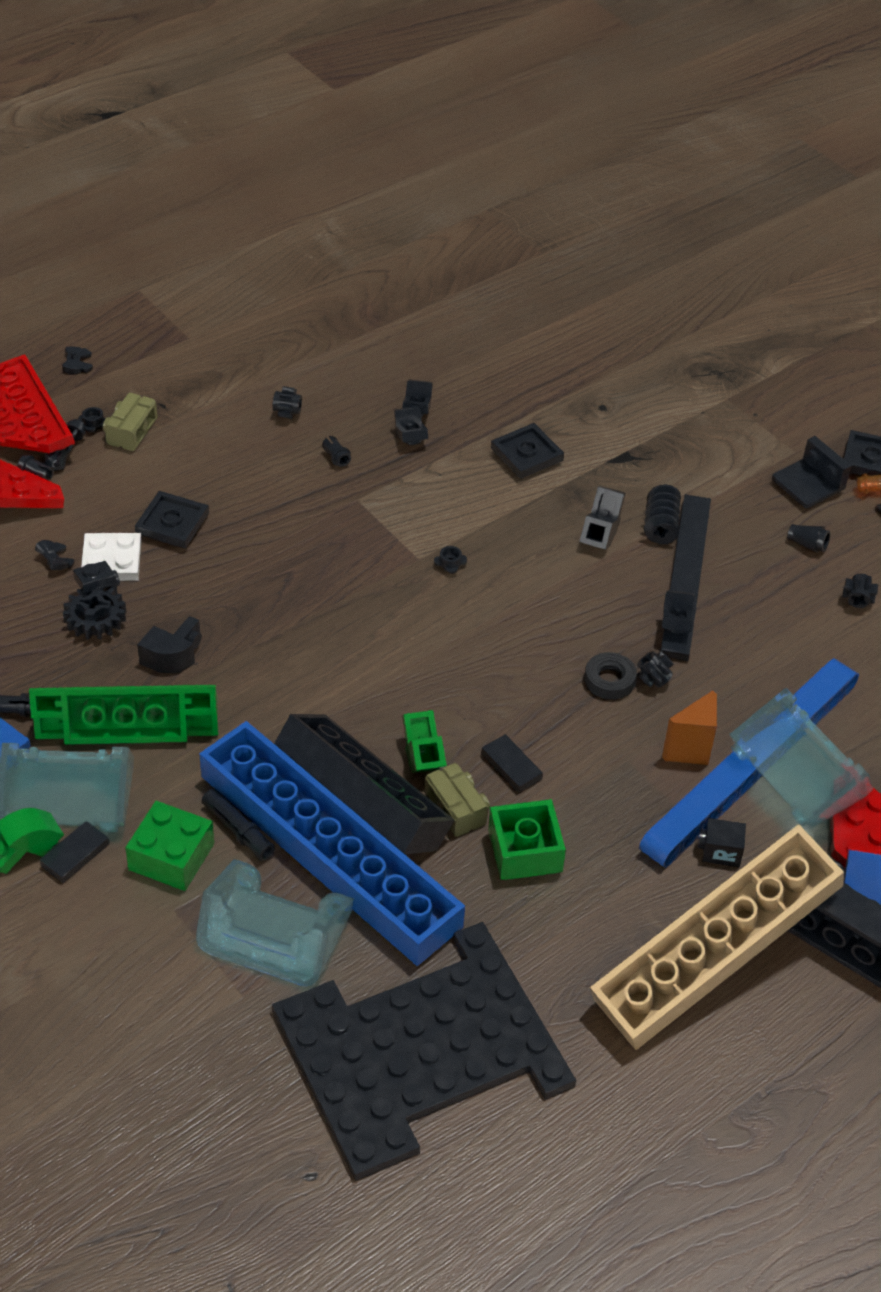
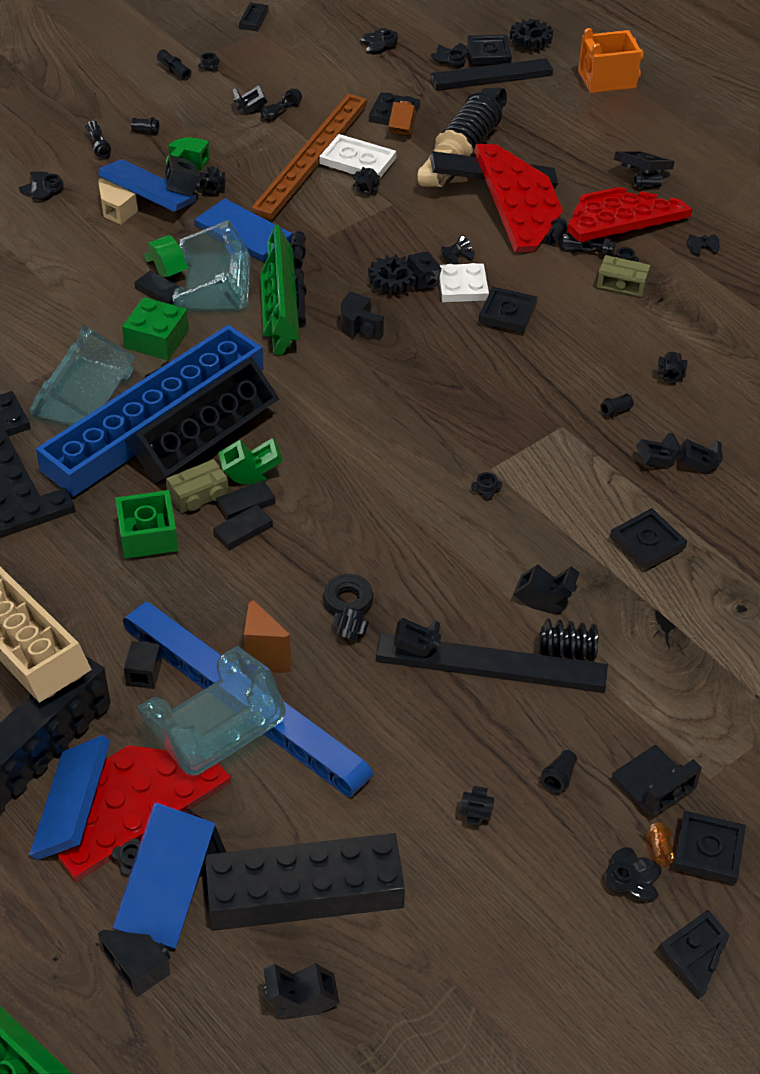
camera: 90 degrees right, 0 degrees up
(470, 757) = (245, 498): none -> black tile

